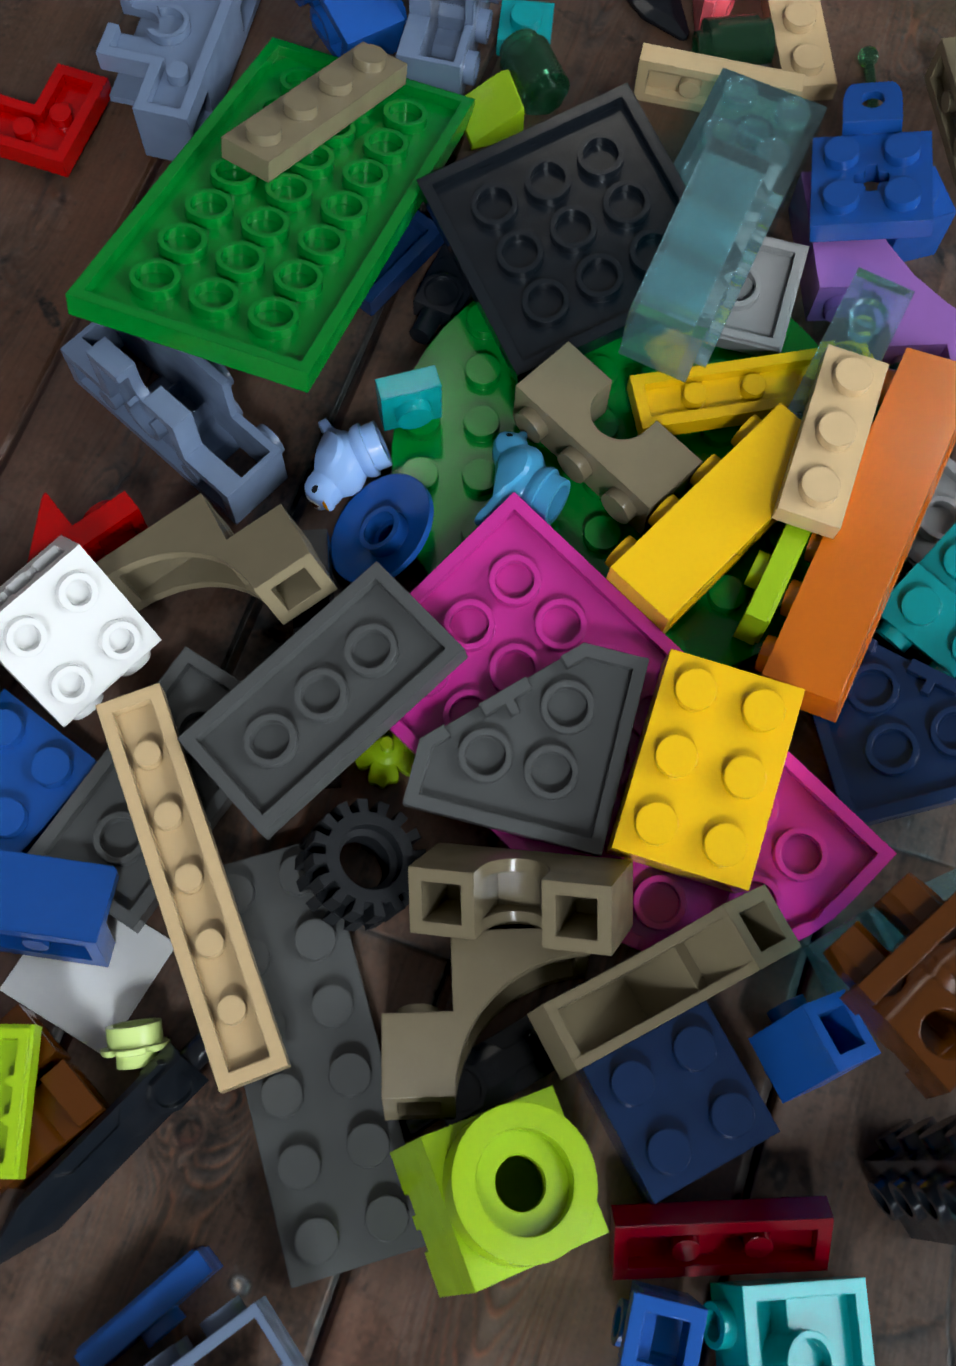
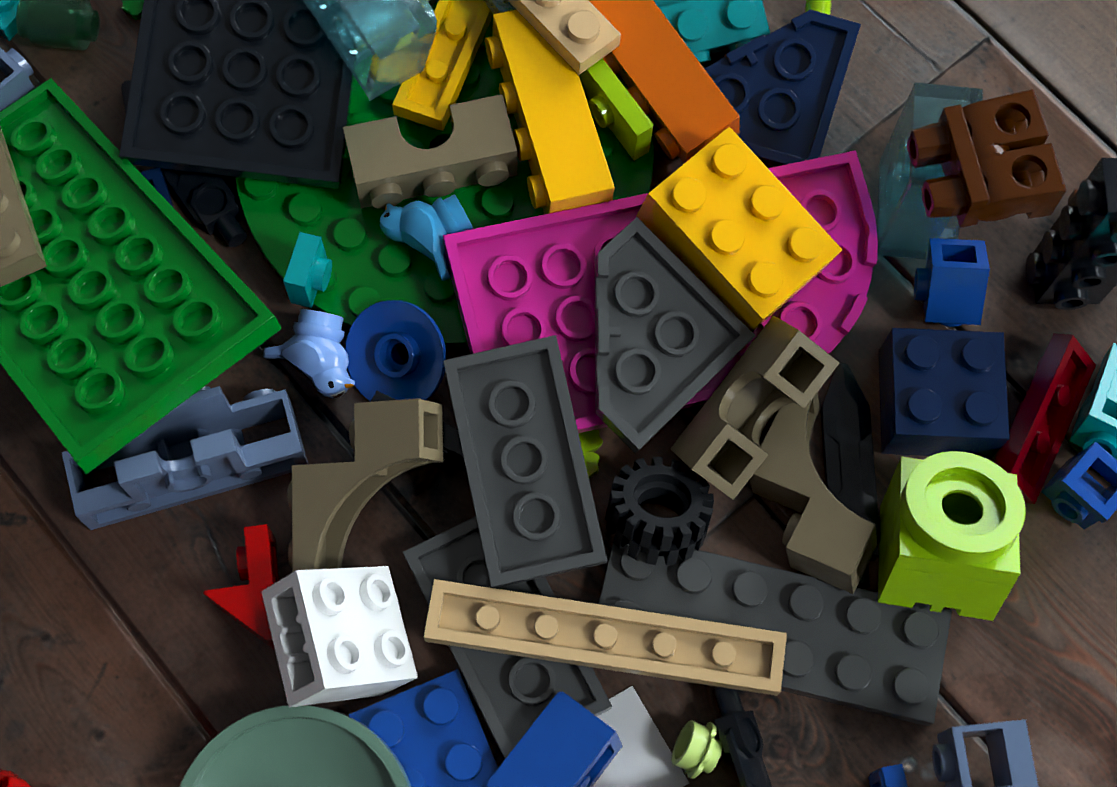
camera: 60 degrees left, 0 degrees up
(496, 111) = (72, 67): lime slope -> none
(663, 981) = (866, 315): dark tan arch -> none

